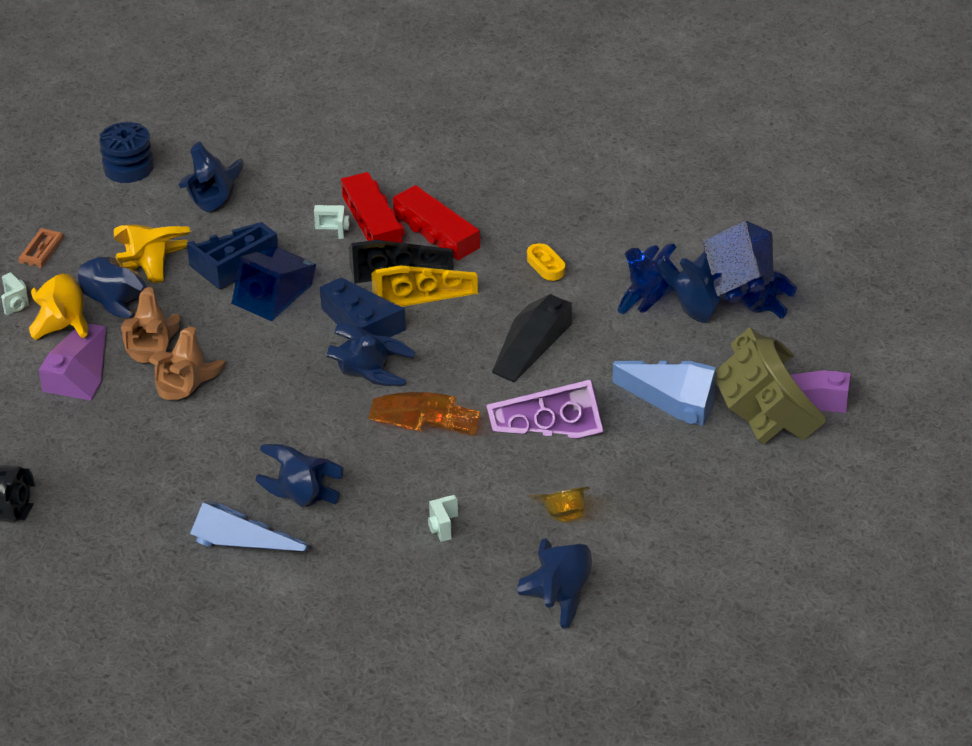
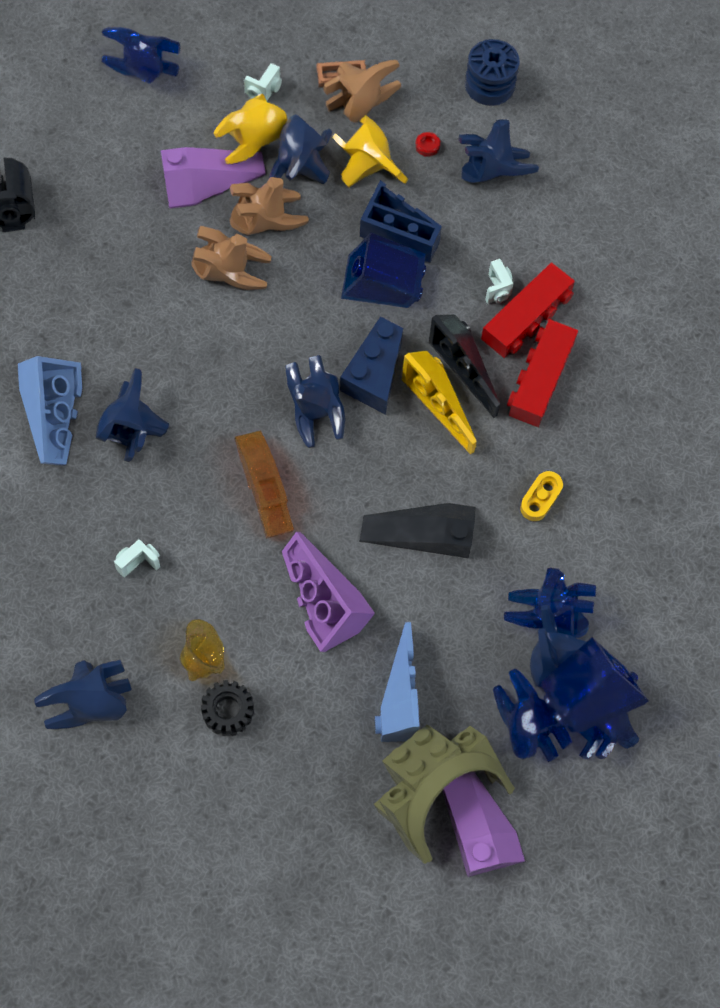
camera: 60 degrees right, 25 degrees up
(75, 234) = (360, 88): none -> medium nougat piece
(159, 219) = (427, 144): none -> red tile
(620, 491) = (225, 691): none -> black tyre
(736, 319) = (530, 720): none -> clear blue piece

